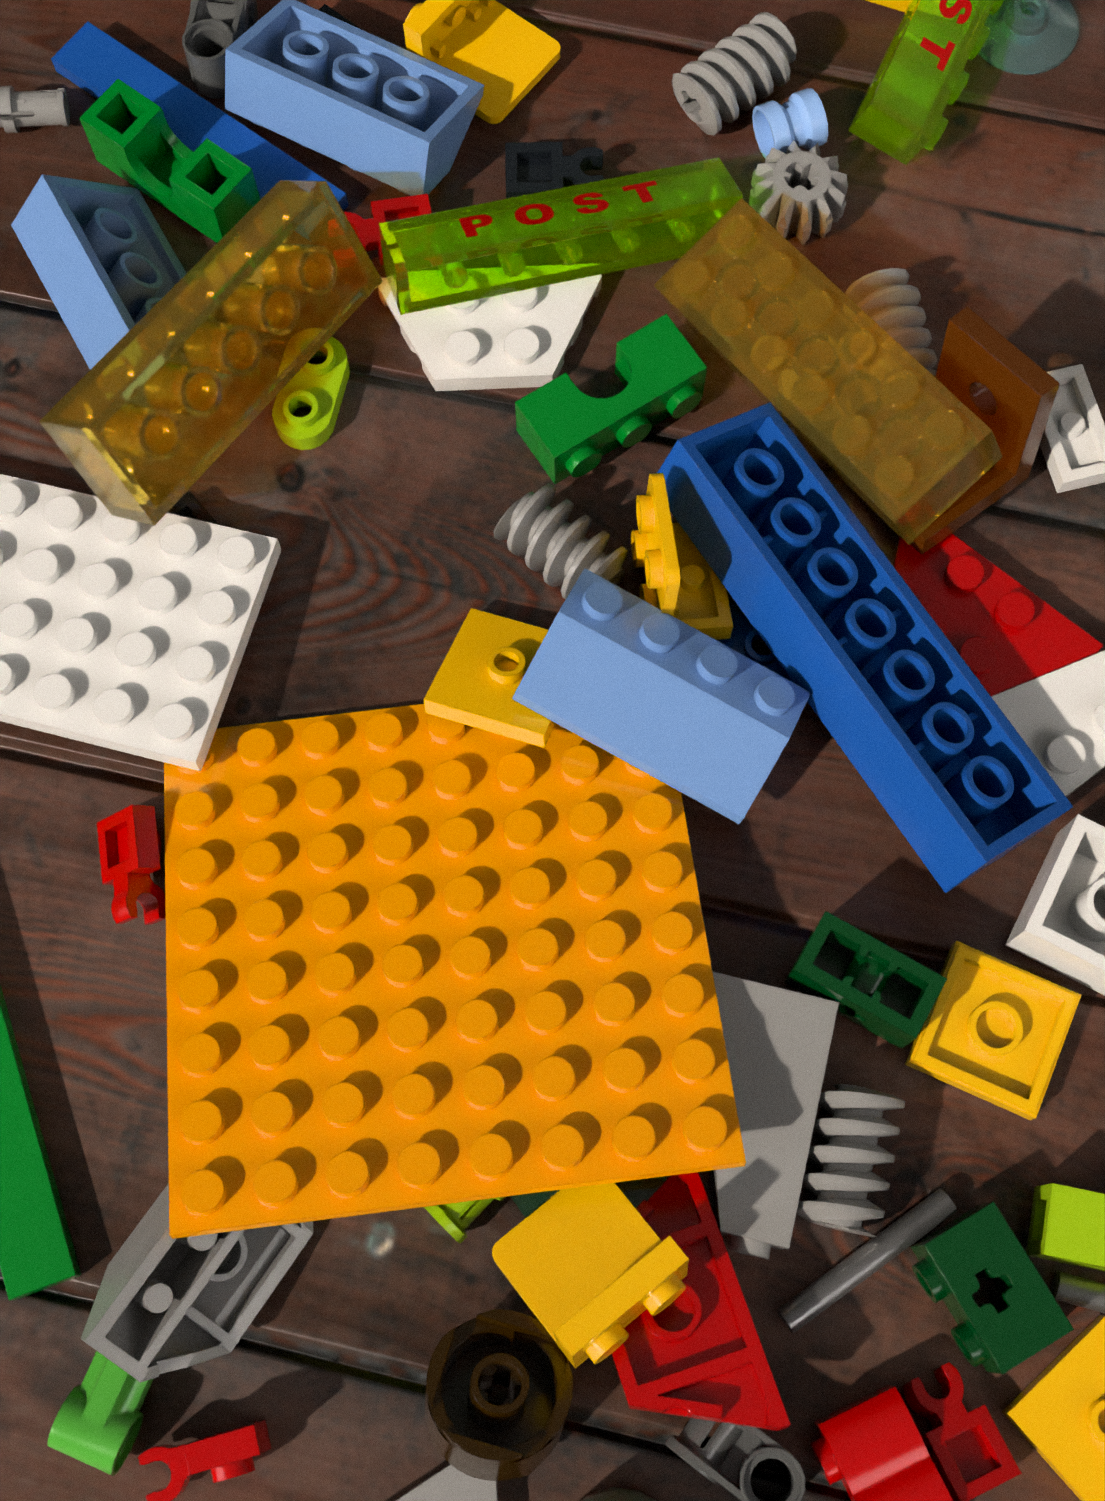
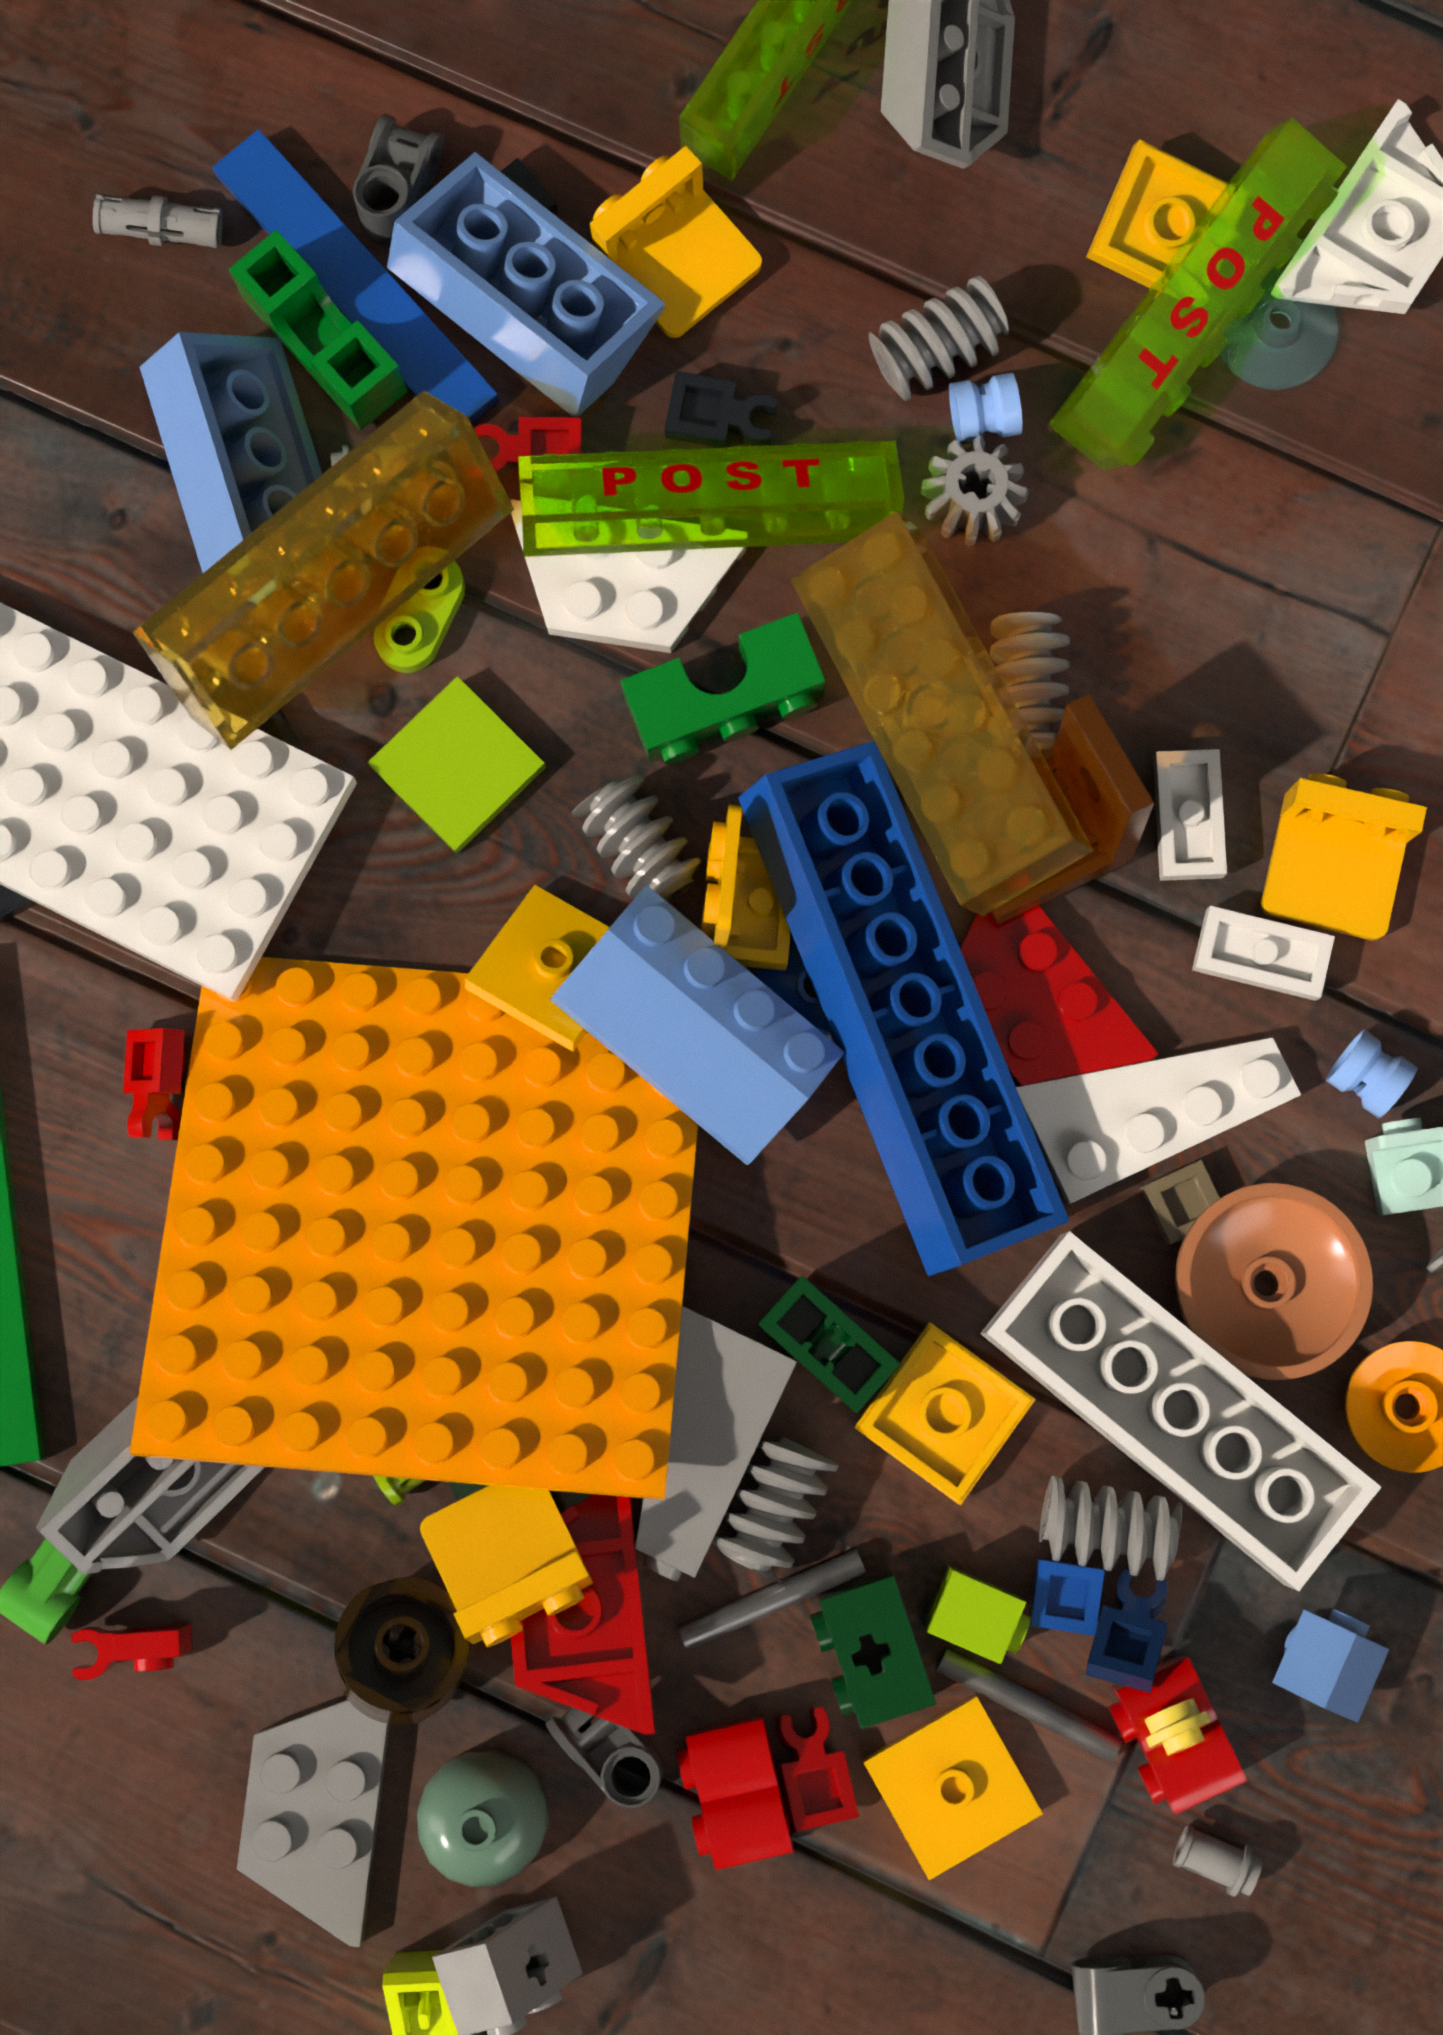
camera: 15 degrees right, 10 degrees up
(373, 517) = (456, 765): none -> lime tile

